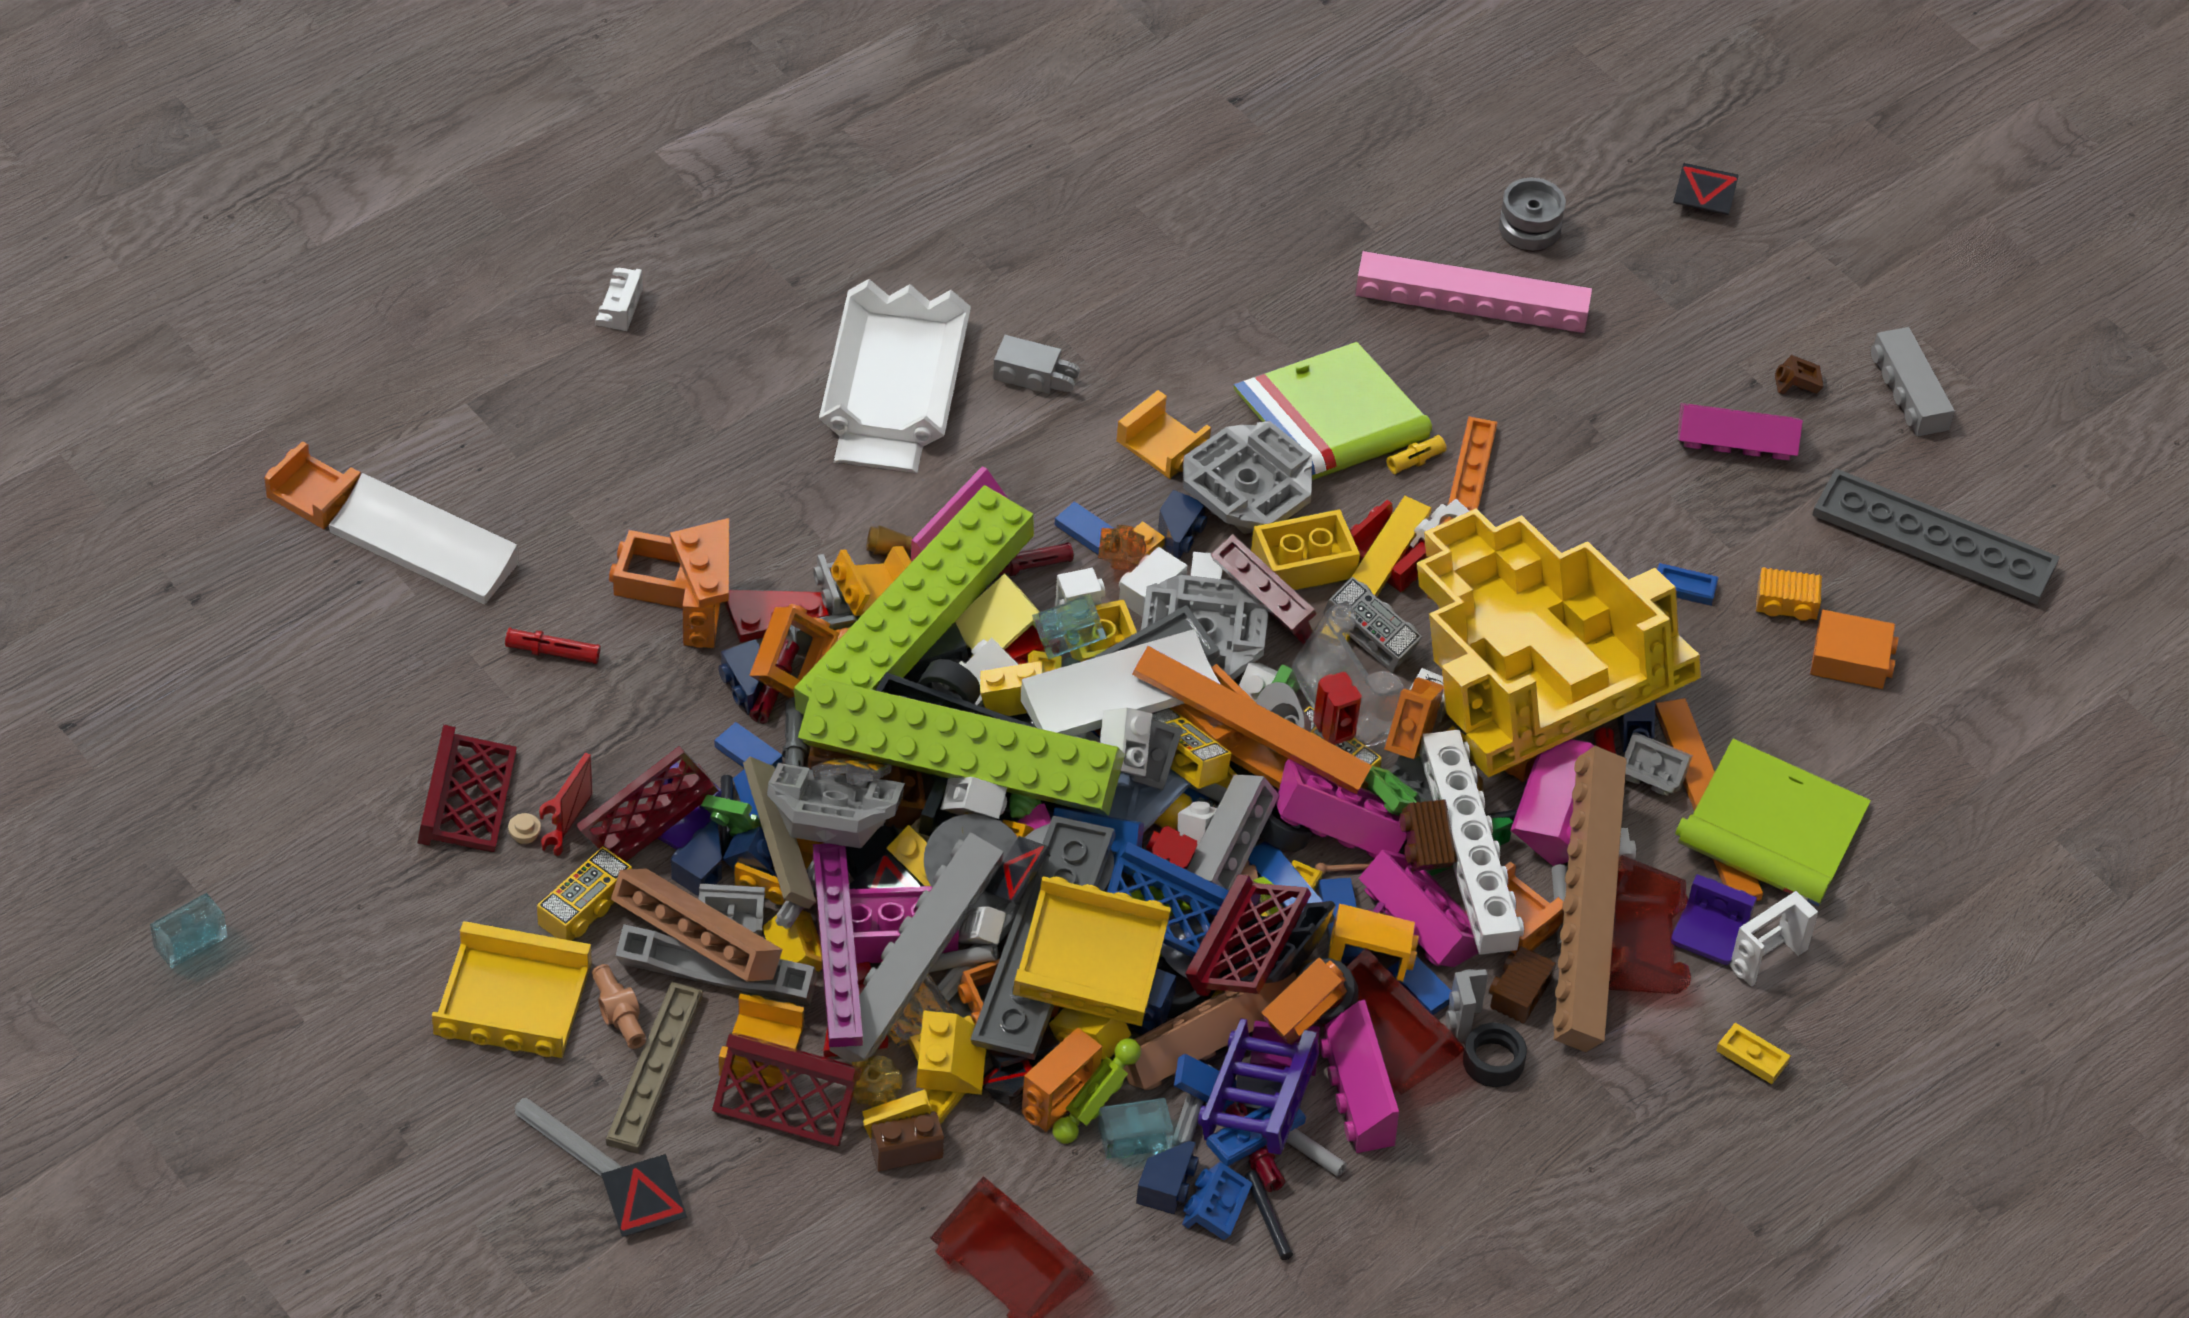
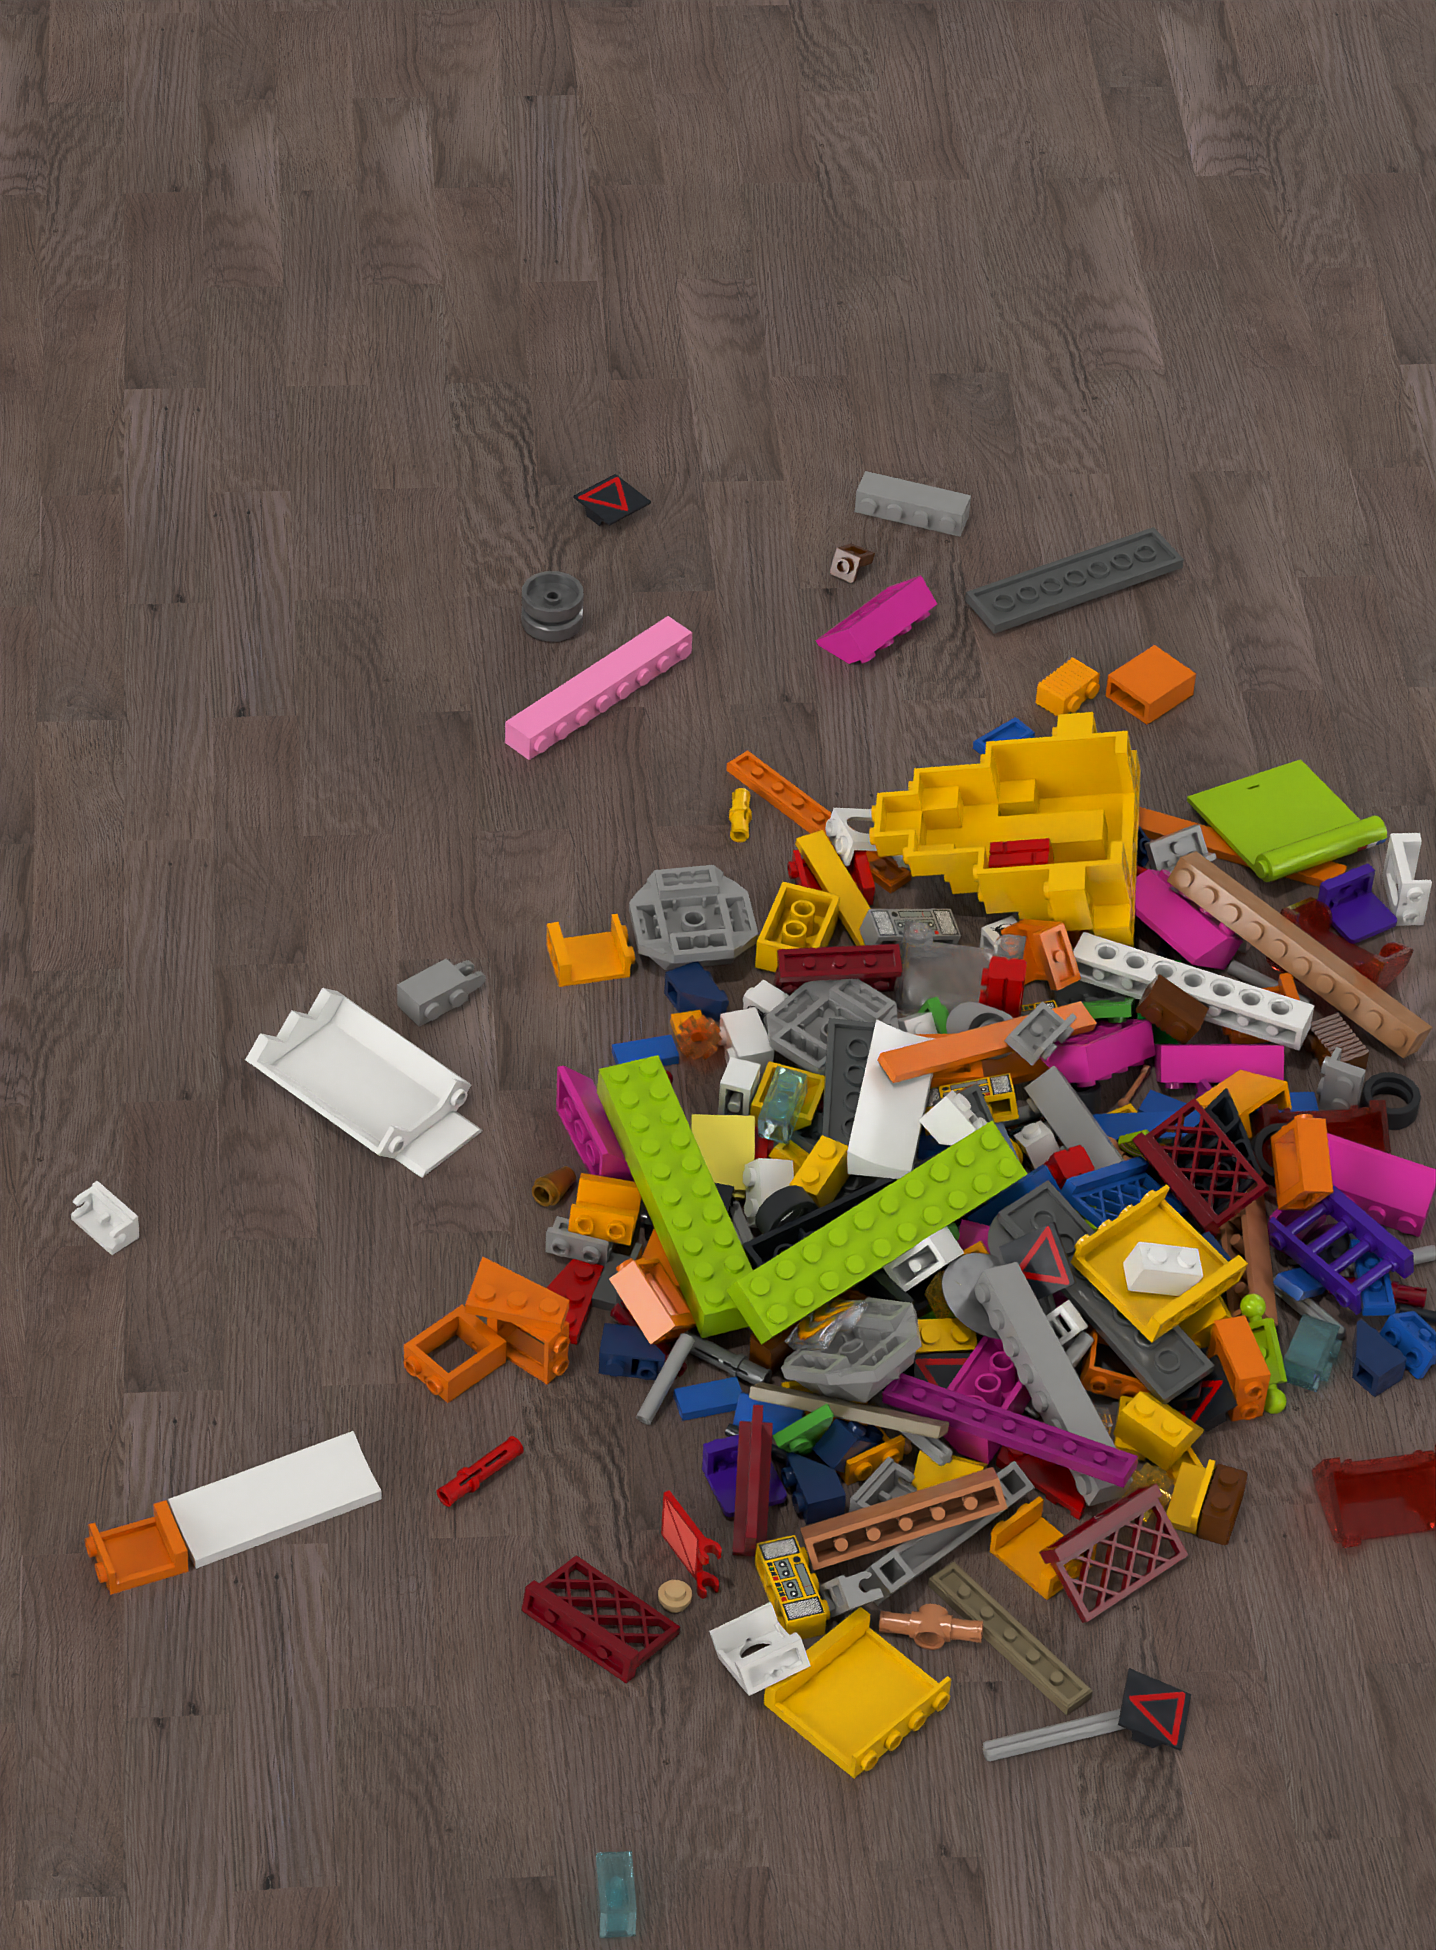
camera: 55 degrees left, 5 degrees down
(479, 906) = (755, 1672): none -> white panel
(593, 928) = (845, 1595): none -> light grey hinge
(735, 708) = (665, 1379): none -> light grey piece
(1076, 951) = (1162, 1269): none -> white brick
(1286, 747) = (1038, 1033): none -> light grey bracket
(1337, 408) = (645, 831): lime door -> none
(1494, 643) = (1021, 853): none -> red brick

